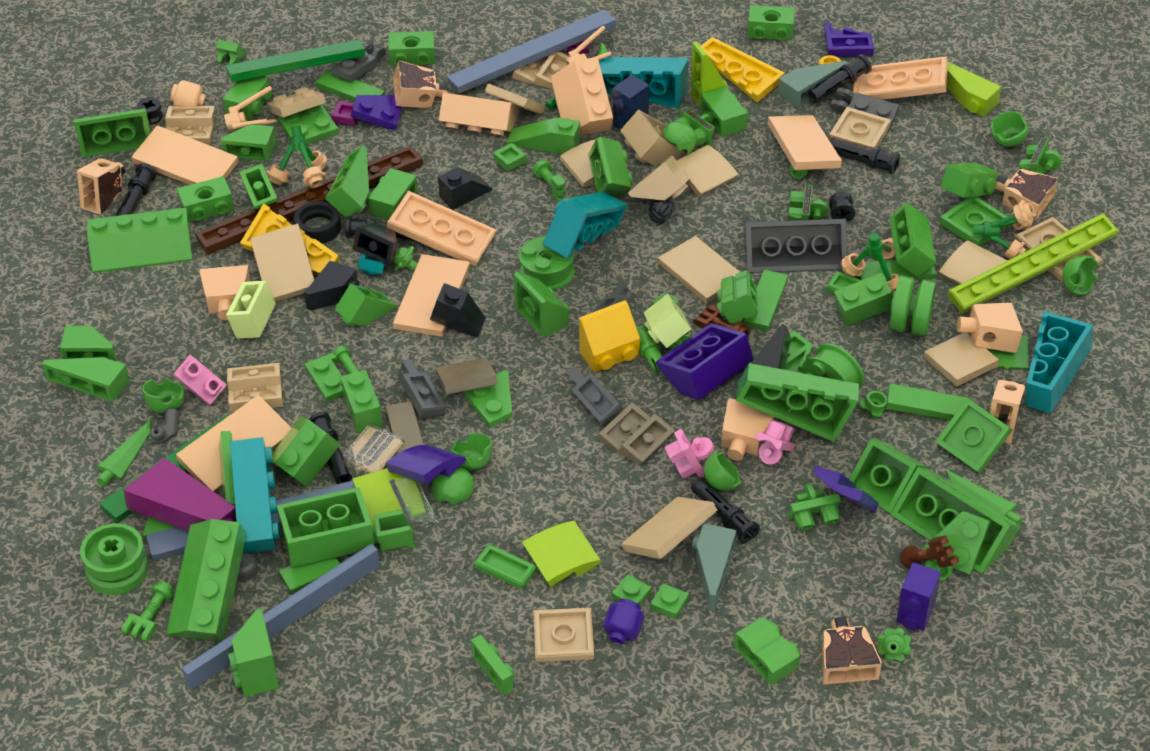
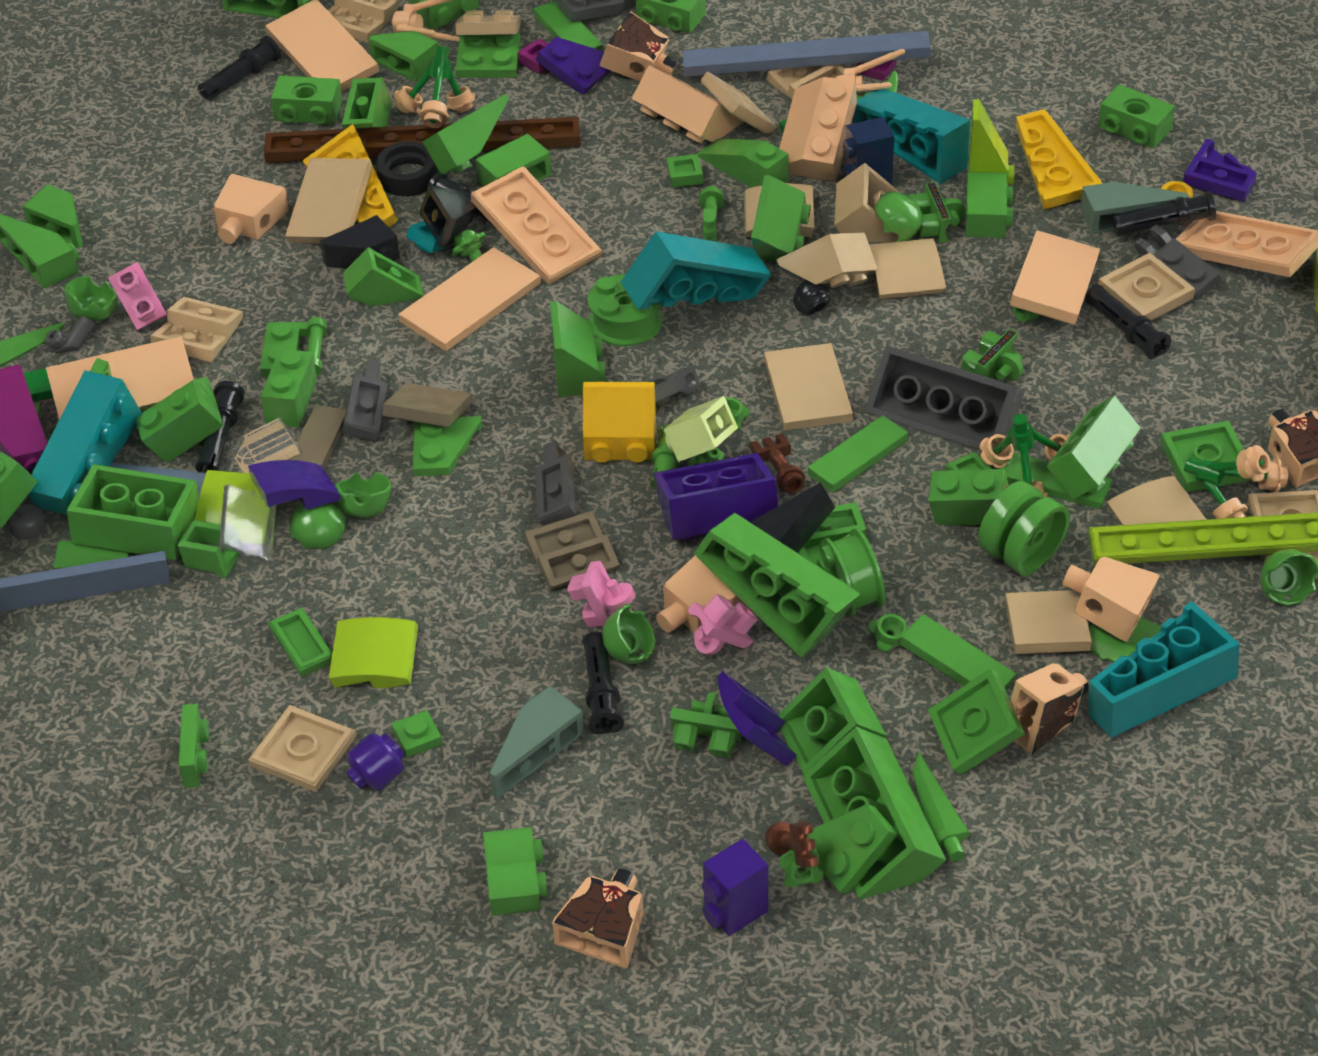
camera: 30 degrees right, 0 degrees up
(99, 184) = (207, 43): light nougat torso -> none
(139, 240) = (203, 120): bright green slope -> none
(251, 309) = (252, 239): yellowish green brick -> none
(457, 311) = (473, 325): black slope -> none
(461, 187) = (600, 185): black slope -> none
(669, 527) = (513, 675): tan tile -> none
(669, 601) = (451, 763): bright green plate -> none
(738, 297) = (814, 434): bright green brick -> none
(841, 206) = (1042, 374): black wheel -> none
(894, 644) = (671, 934): bright green plant -> none
(969, 179) = (1231, 399): bright green brick -> none

